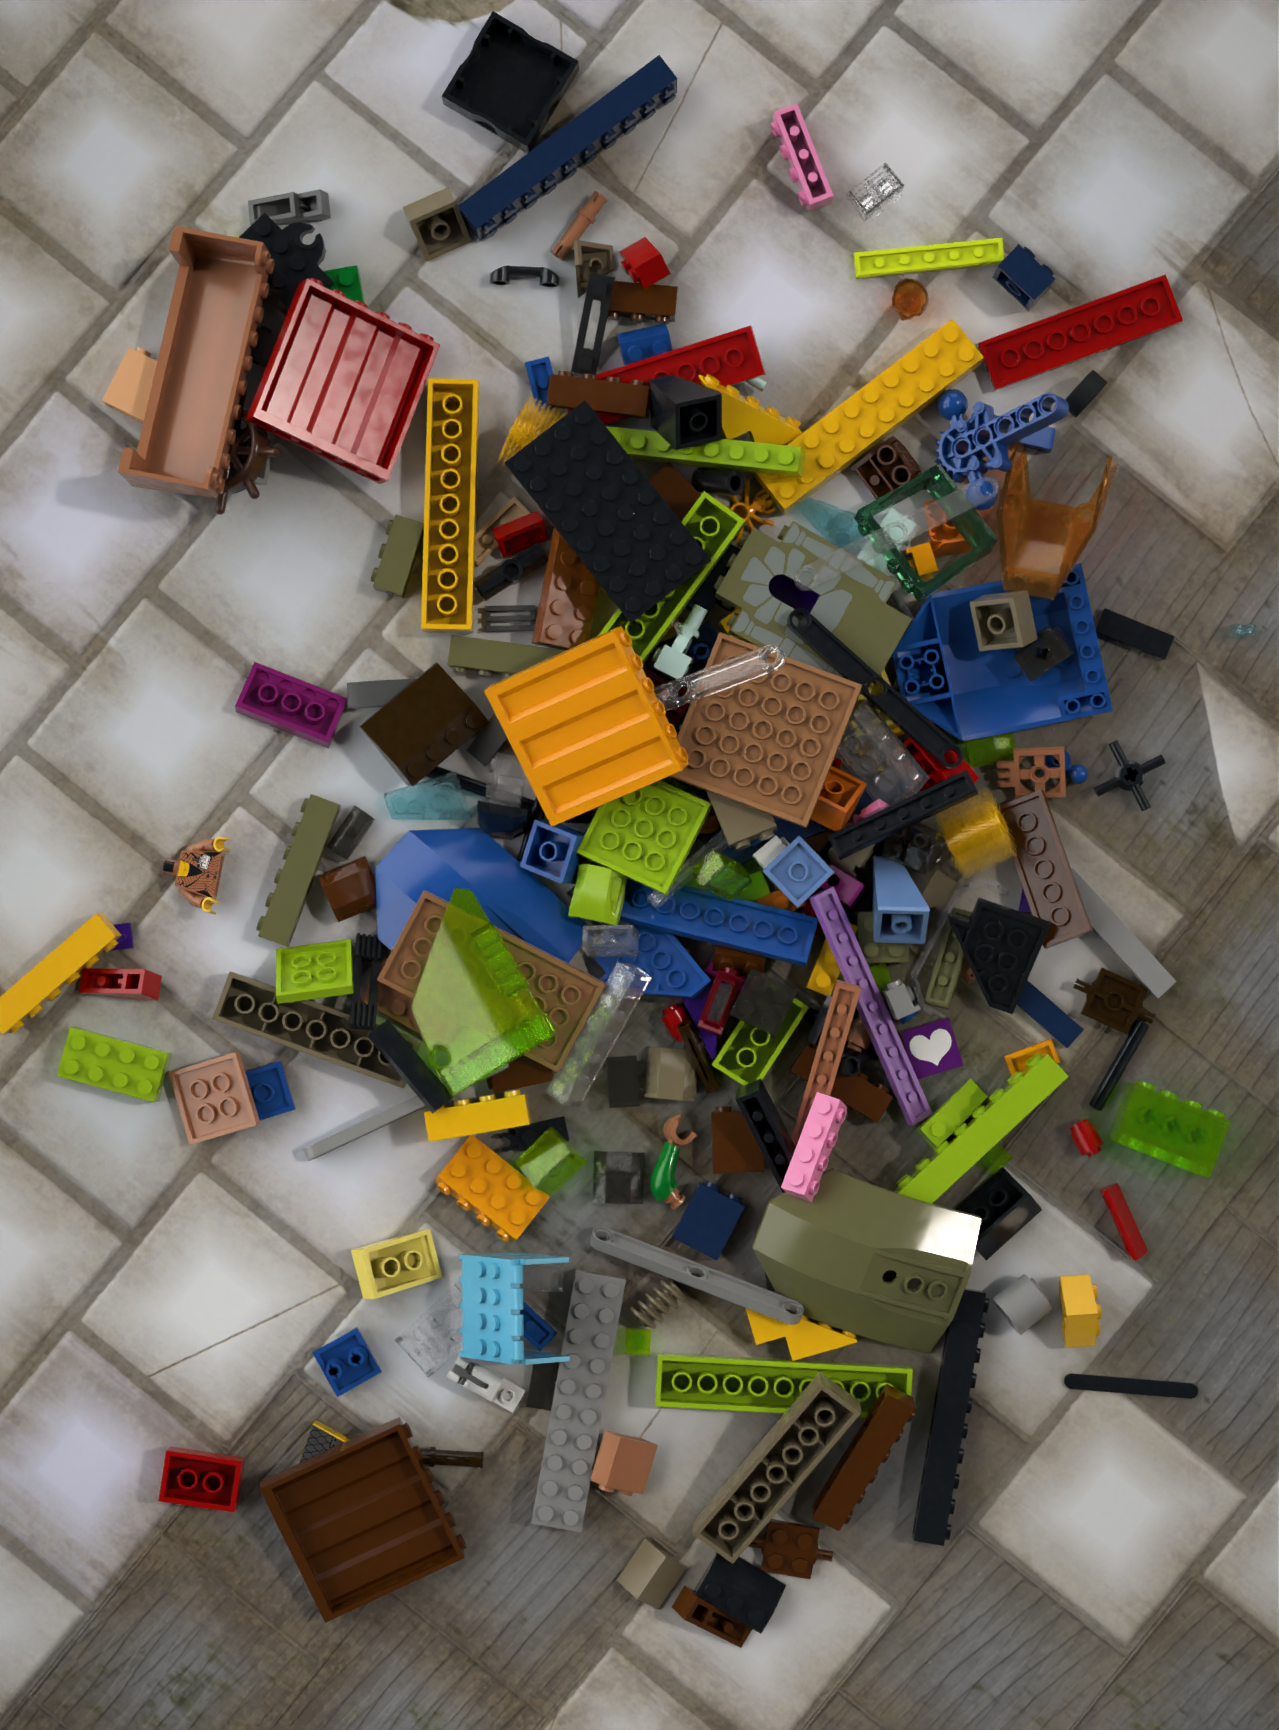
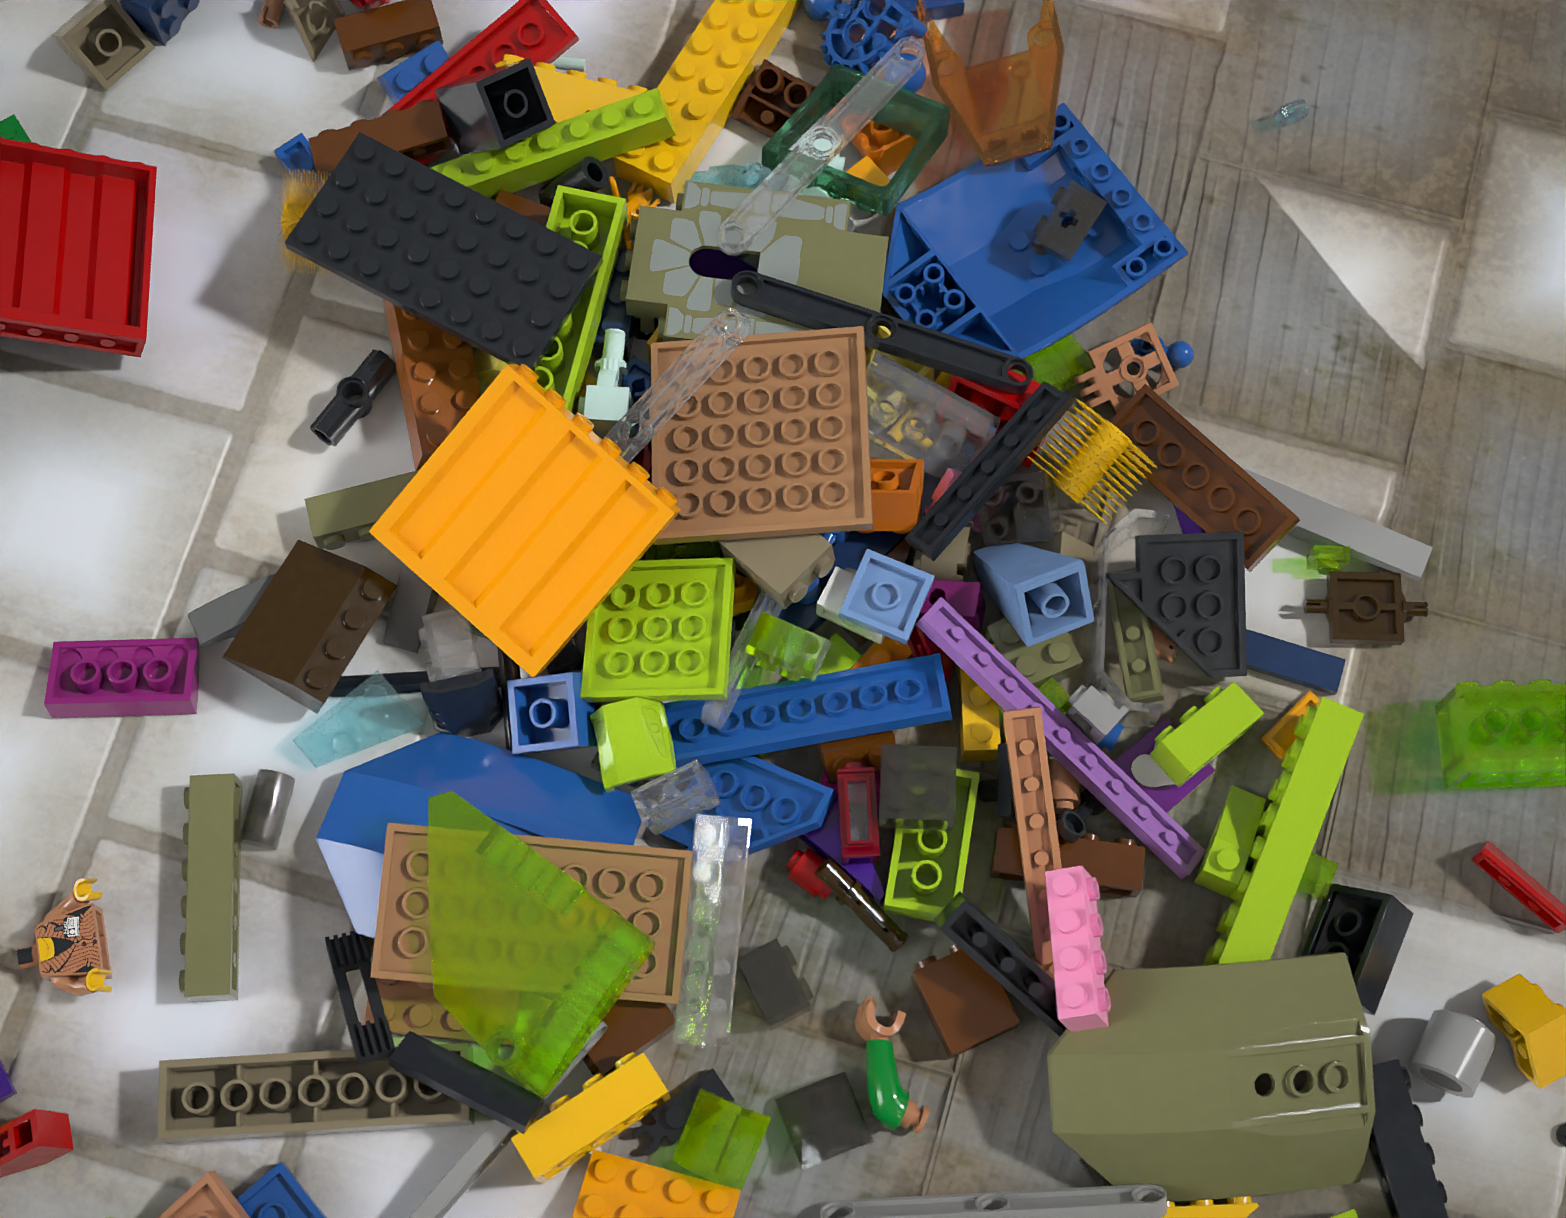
camera: 25 degrees left, 15 degrees down
(314, 971) = (281, 1011): lime plate -> none
(350, 889) = (294, 883): reddish brown slope -> none
(398, 556) = (198, 436): olive brick -> none
(450, 505) = (243, 350): yellow brick -> none
(484, 541) = (316, 361): tan tile -> none
(502, 275) = (205, 66): black bar -> none
(513, 608) = (371, 445): dark grey tile -> none
(520, 534) = (348, 349): red slope -> none
(599, 288) = (333, 26): black container -> none
(670, 1075) = (834, 947): dark tan slope -> none
(708, 1219) = (974, 1125): dark blue brick -> none
(967, 1040) = (1205, 732): none -> lime brick
(1003, 620) = (1002, 197): dark tan brick -> none
(1086, 1138) = (1420, 796): red brick -> none
(1105, 959) = (1328, 558): none -> clear neon green plate
(1119, 1065) = (1413, 687): black axle -> none
(1134, 634) = (1168, 170): black tile -> none
(1139, 771) = (1238, 339): black bar -> none

